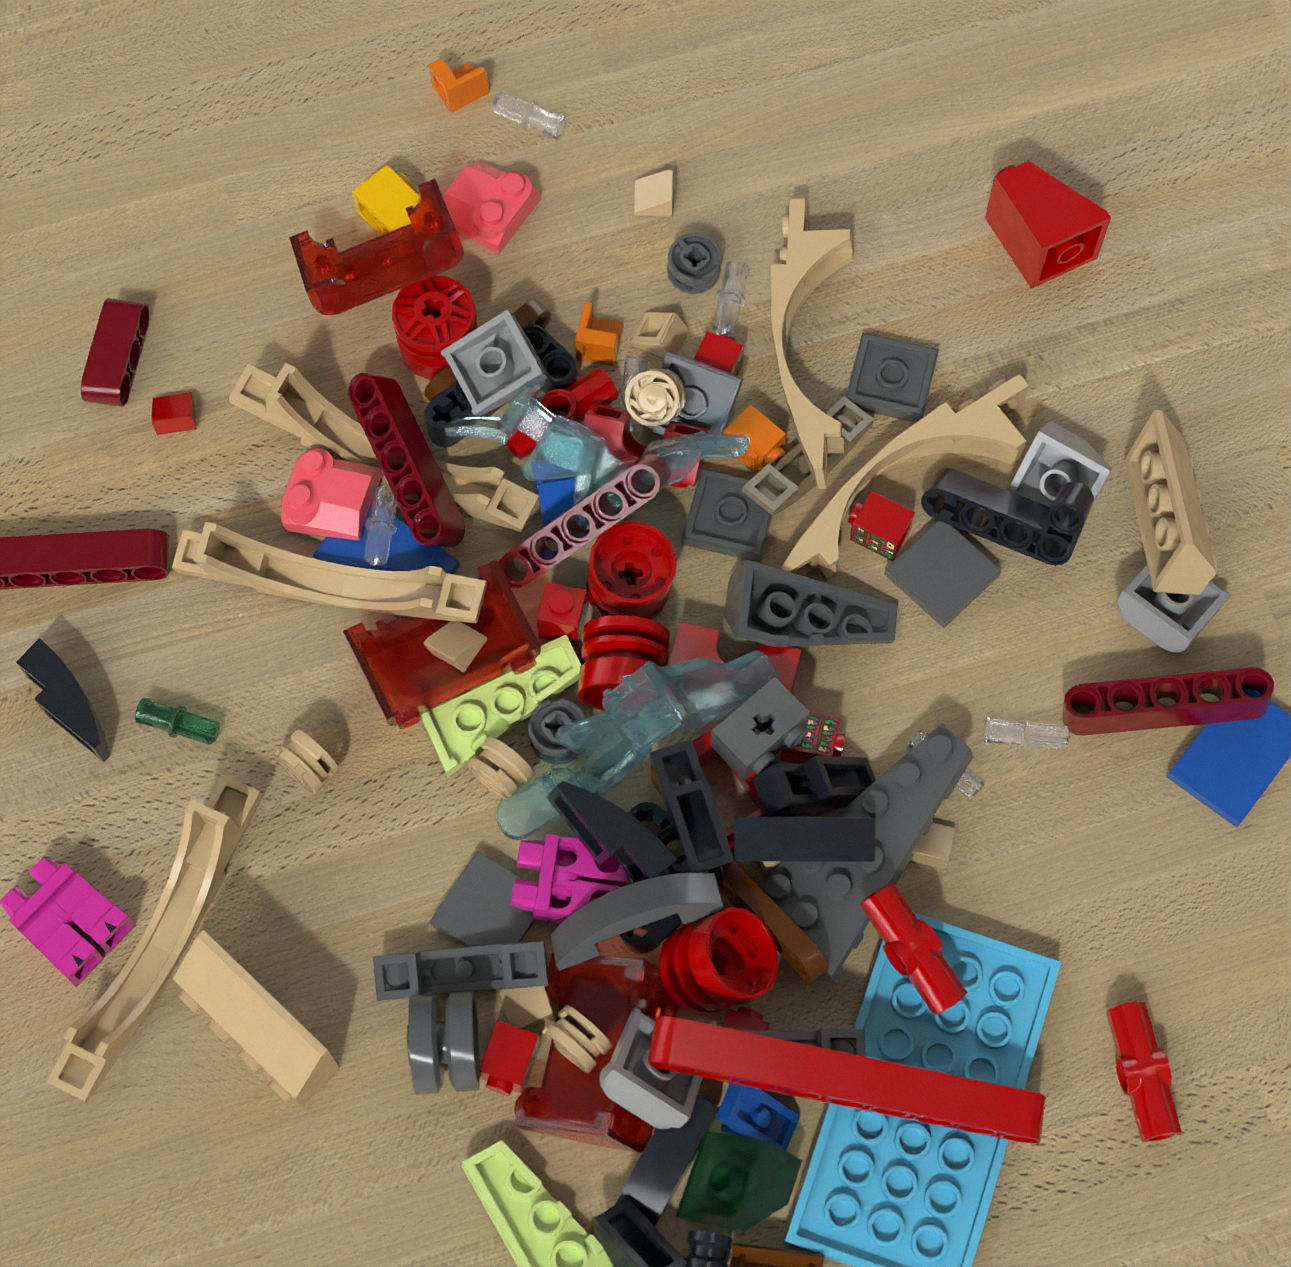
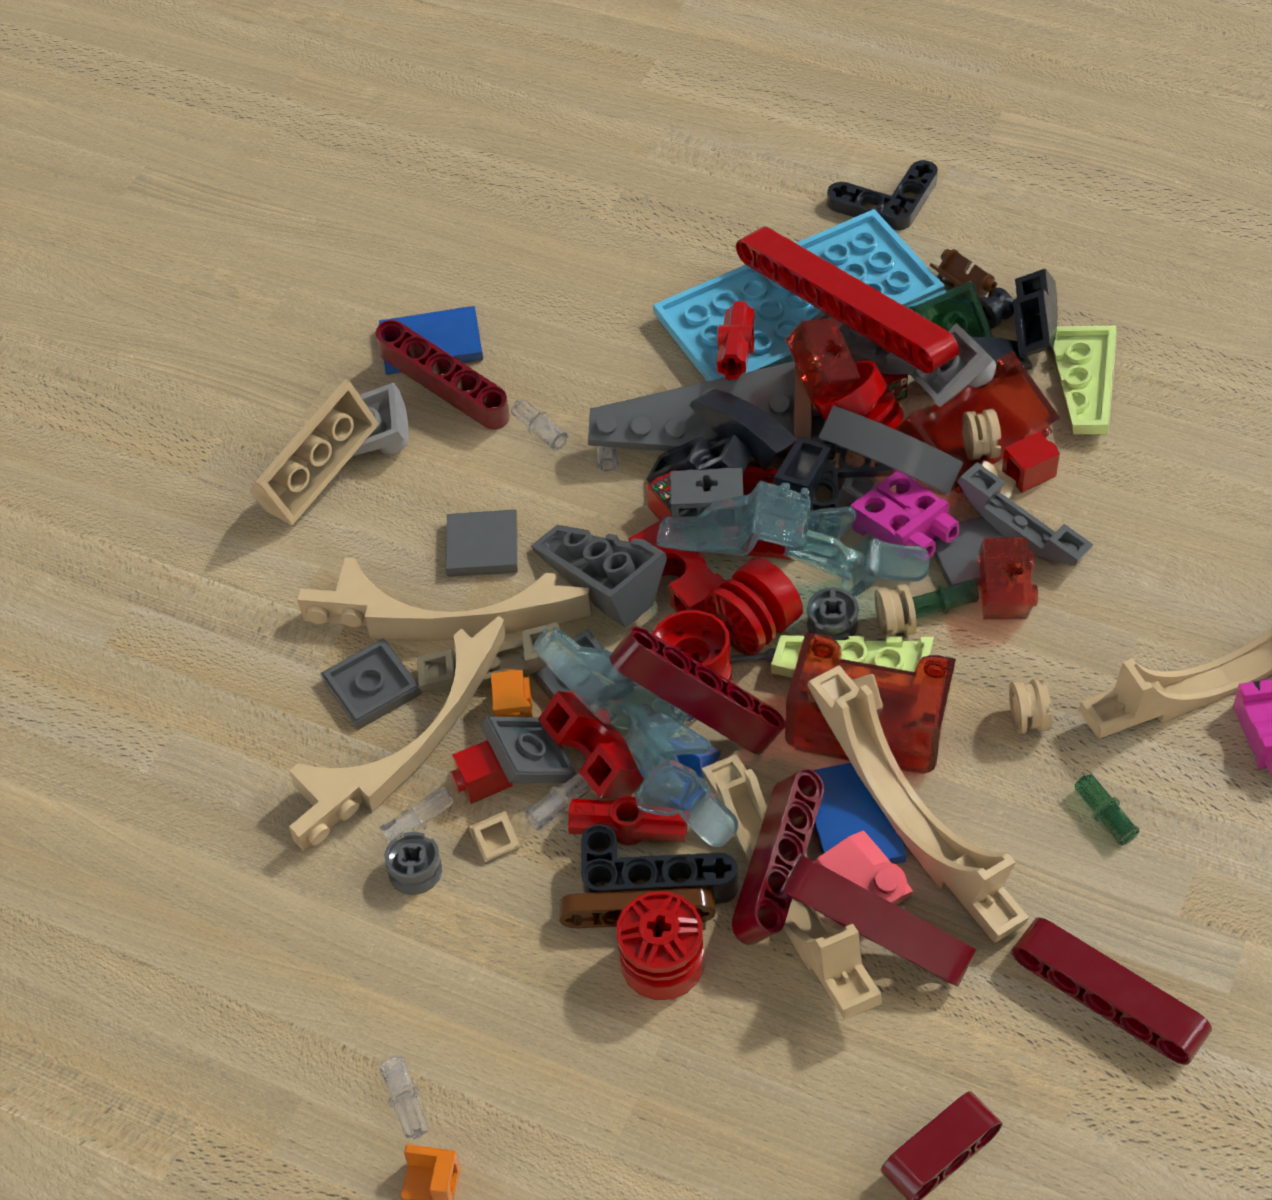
camera: 135 degrees left, 15 degrees down
(63, 697) = (1187, 882): black slope -> none
(173, 413) = (930, 1058): red slope -> none
(253, 1020) = (1188, 576): tan slope -> none
(277, 452) = (878, 920): none -> dark red beam
(380, 527) = (839, 825): clear axle -> none
(383, 200) = (596, 1088): yellow brick -> none
(383, 264) = (659, 1003): clear red windscreen -> none
(441, 895) = (997, 561): none -> clear red brick
(441, 1042) = (1069, 477): dark grey wheel -> none
(473, 829) = (945, 598): none -> clear green axle
(490, 204) = (514, 1042): coral slope -> none
(494, 363) = (650, 850): light grey slope -> none
(562, 612) = (762, 676): red brick -> none
(597, 338) = (543, 862): orange panel -> none
(611, 831) = (864, 496): black slope -> none
(654, 194) = (380, 944): tan slope -> none
(655, 397) = (555, 756): tan wheel -> none
(806, 956) = (822, 358): none -> clear red brick
(880, 525) = (488, 582): red brick -> none
(957, 498) = (405, 528): black beam -> none
(1044, 223) = (160, 682): red slope -> none
(1056, 459) = (346, 529): light grey slope -> none
(1143, 1072) = (664, 240): red piece -> none

